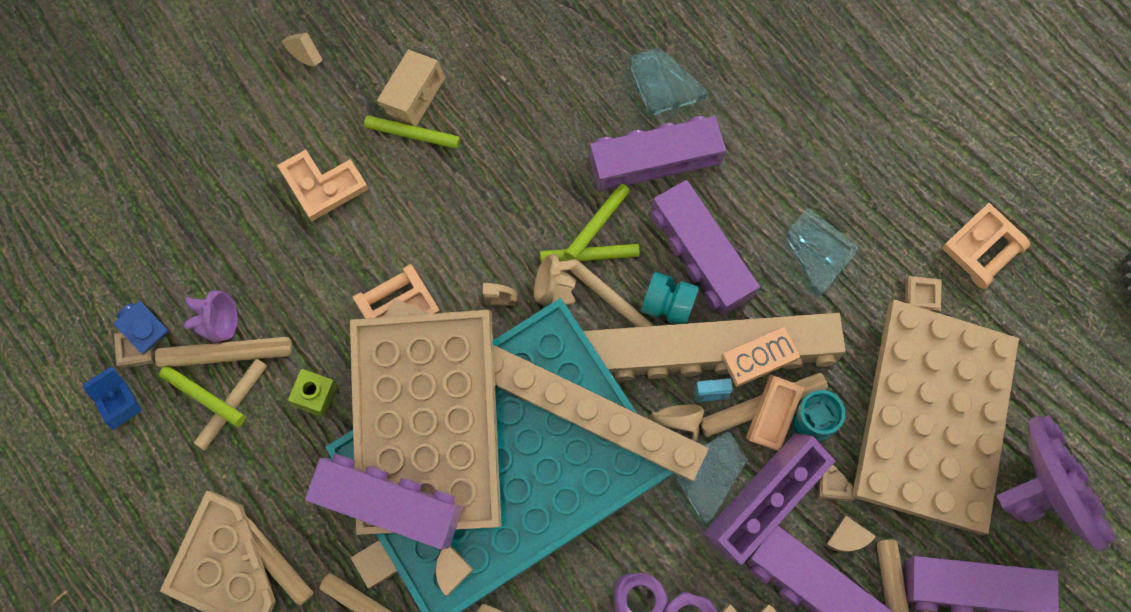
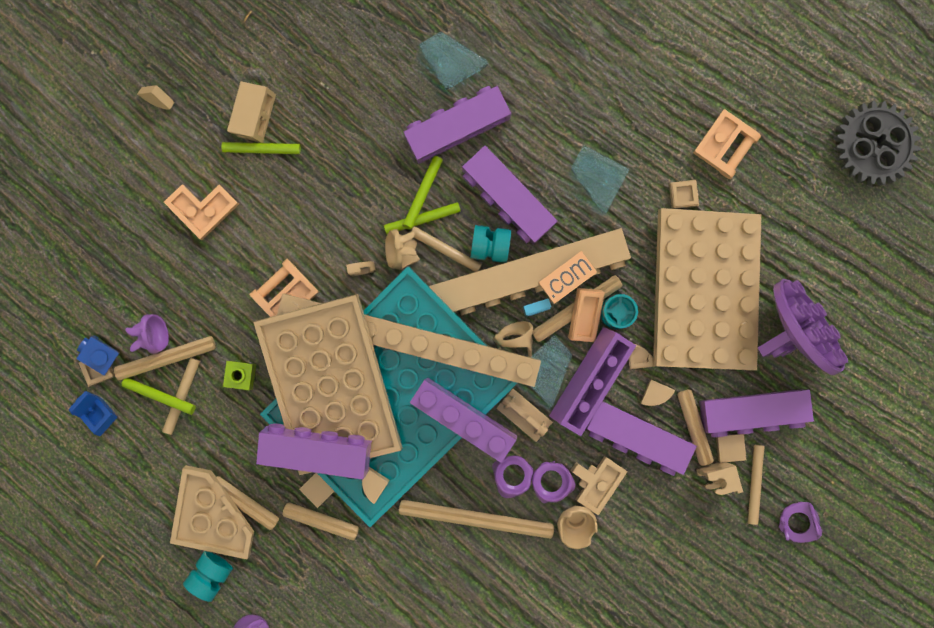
camera: 10 degrees left, 15 degrees up
(591, 503) = (464, 419): none -> medium lavender brick
(669, 526) = (524, 415): none -> tan hinge

